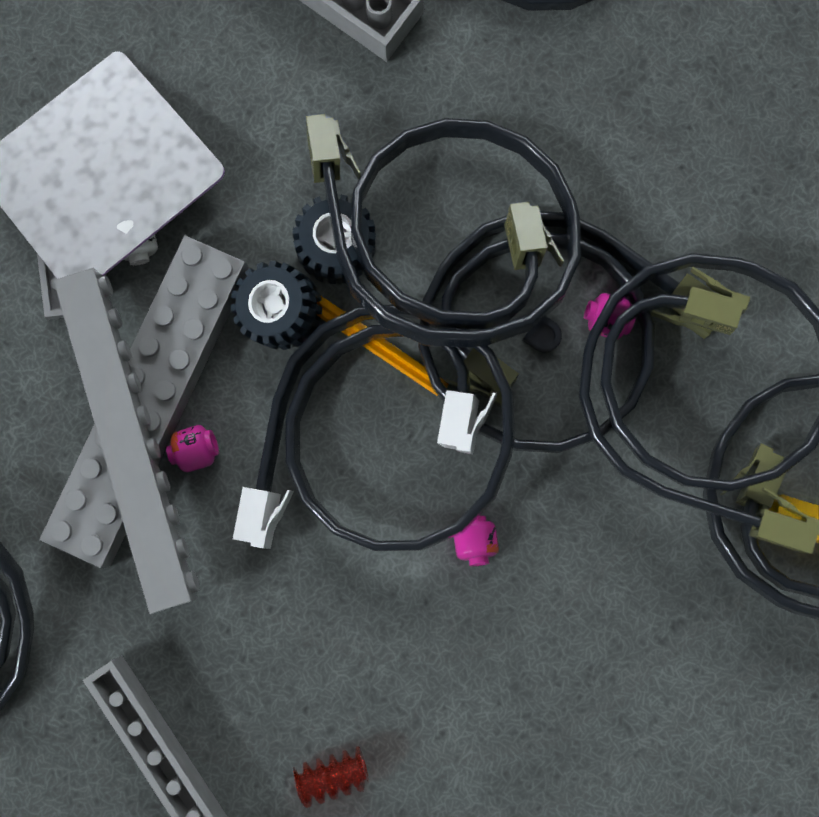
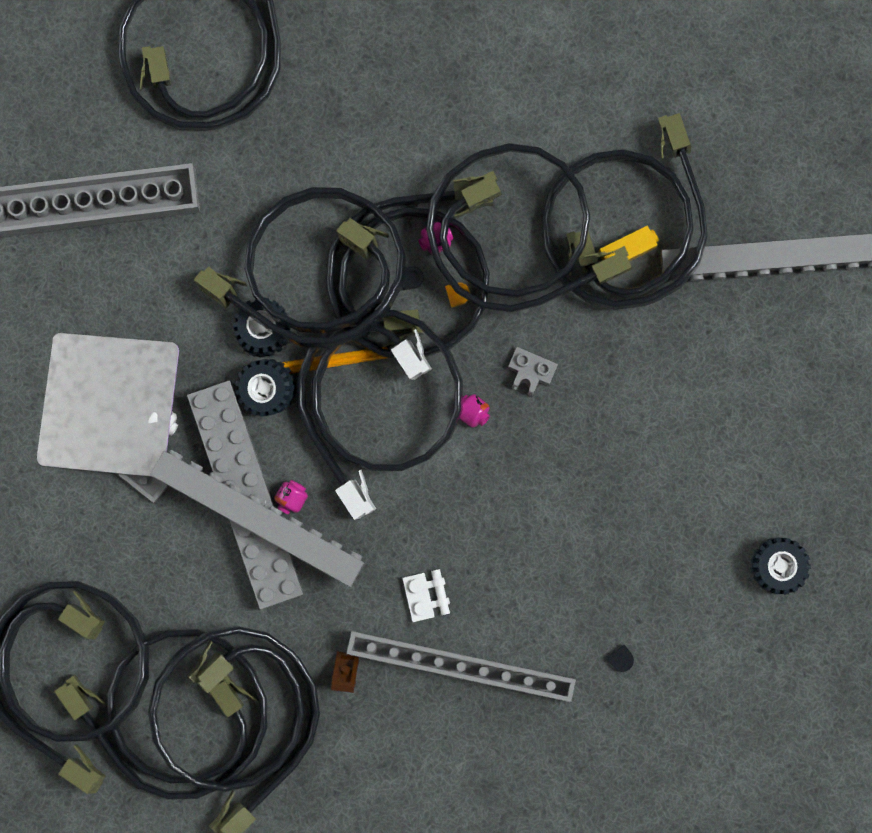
camera: 45 degrees left, 0 degrees up
(63, 697) = (345, 672): none -> reddish brown slope
(226, 688) = (419, 599): none -> white plate
(331, 778) = (510, 589): clear red piece -> none
(570, 401) = (454, 298): none -> light orange tile
(580, 555) = (531, 370): none -> light grey plate

